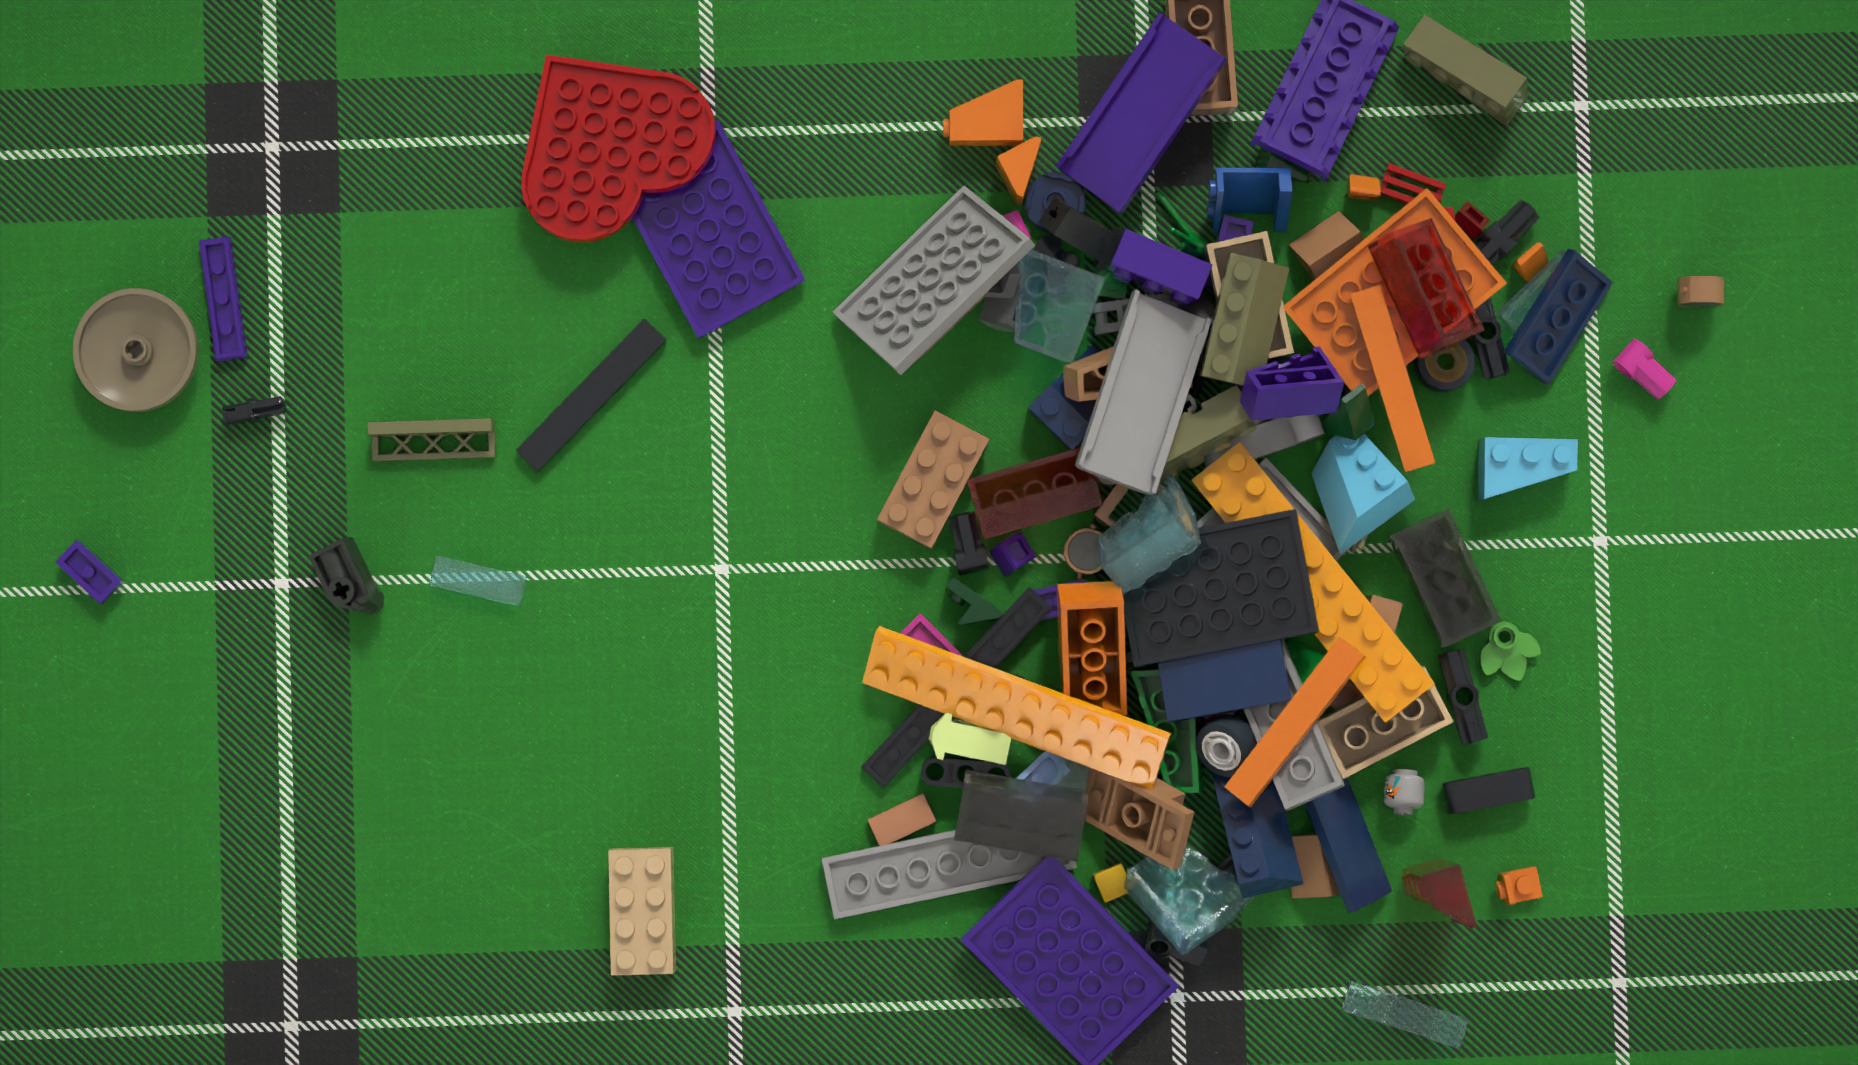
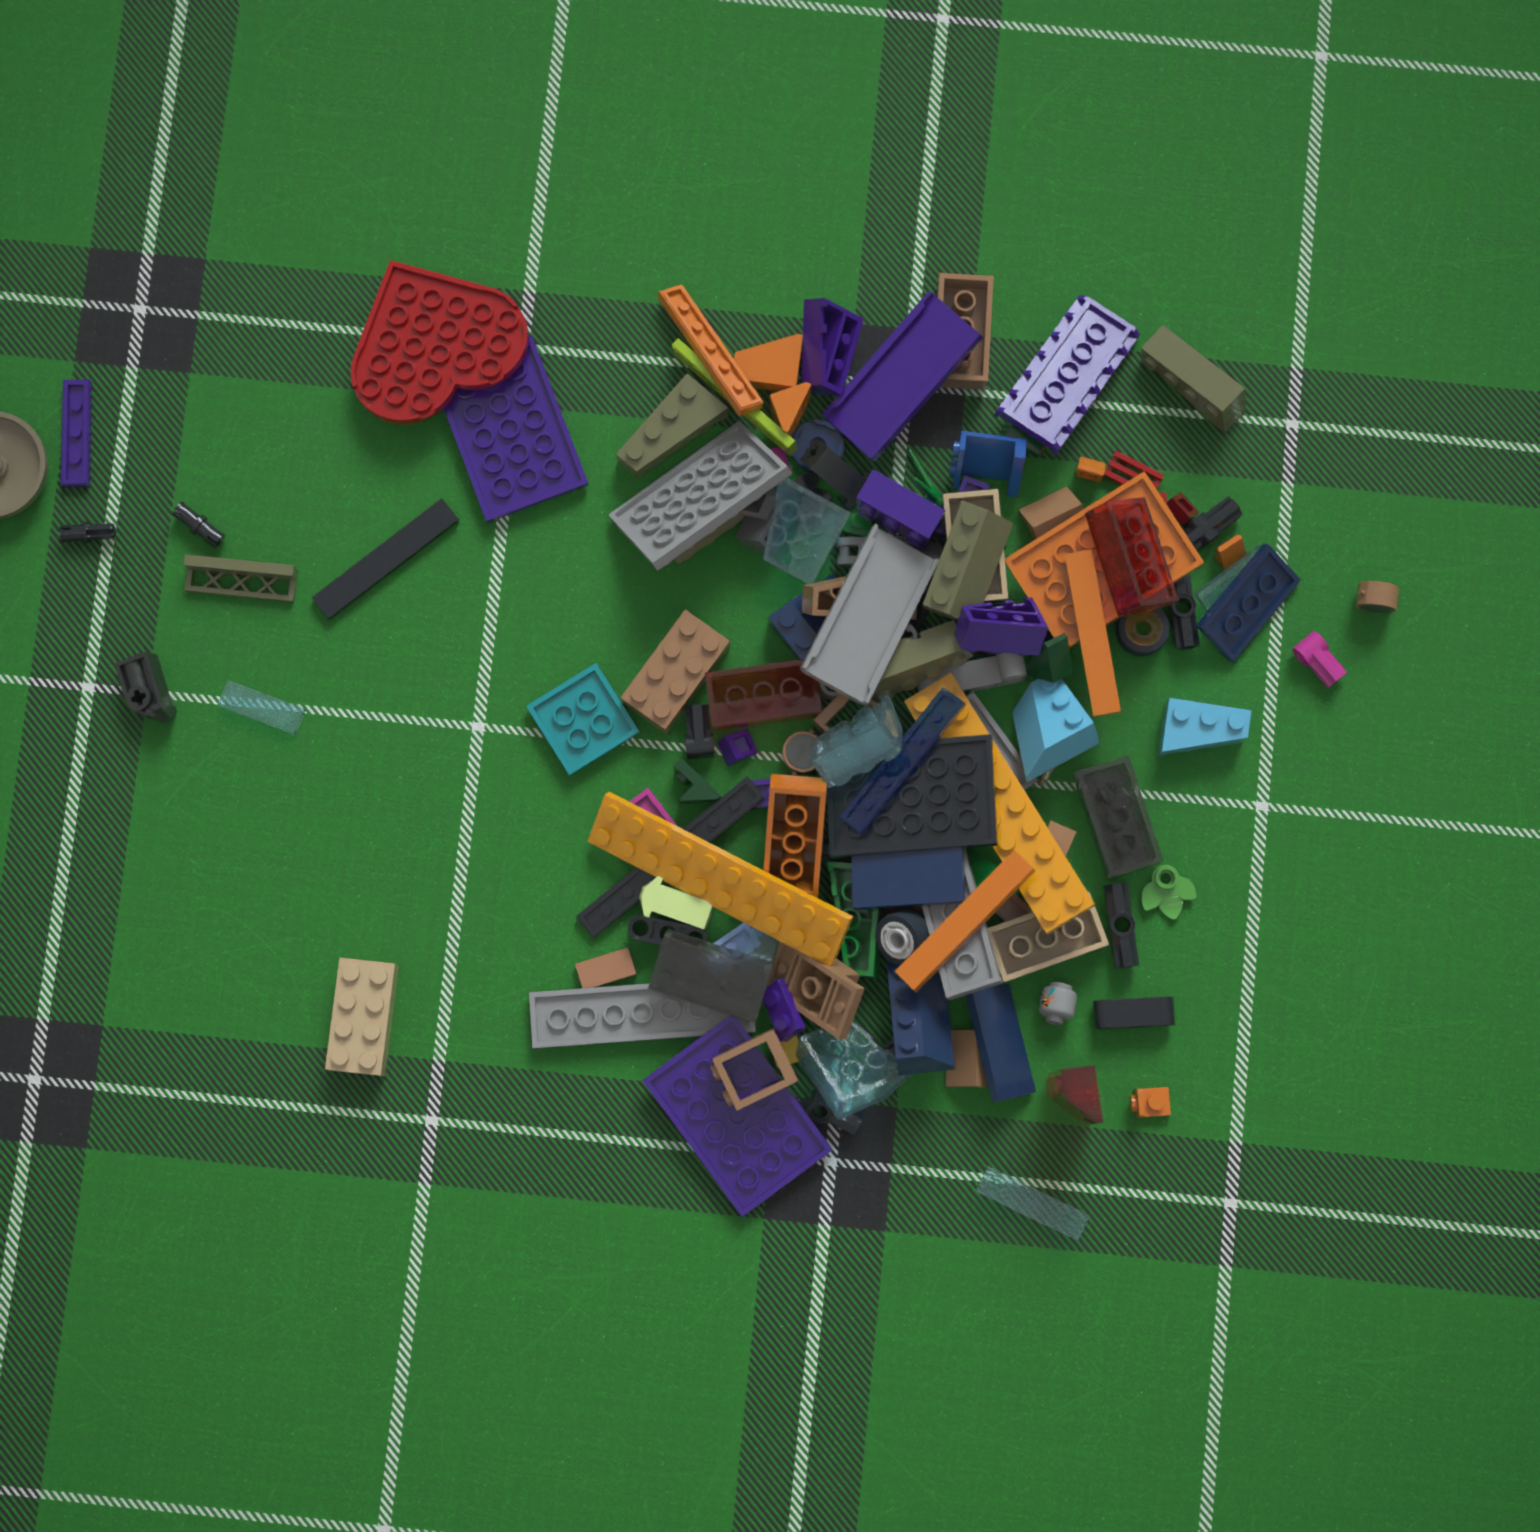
camera: 10 degrees right, 5 degrees down
(376, 385) = (198, 524): none -> black pin
(837, 546) = (583, 719): none -> teal plate
(893, 198) = (677, 420): none -> olive wedge
(921, 111) = (710, 350): none -> orange tile
(955, 161) = (756, 417): none -> lime tile
(1052, 88) = (828, 345): none -> dark purple wedge
(1060, 943) = (778, 1052): none -> medium nougat window
(1104, 842) = (782, 1011): none -> dark purple plate
(1192, 568) = (895, 772): none -> clear blue tile

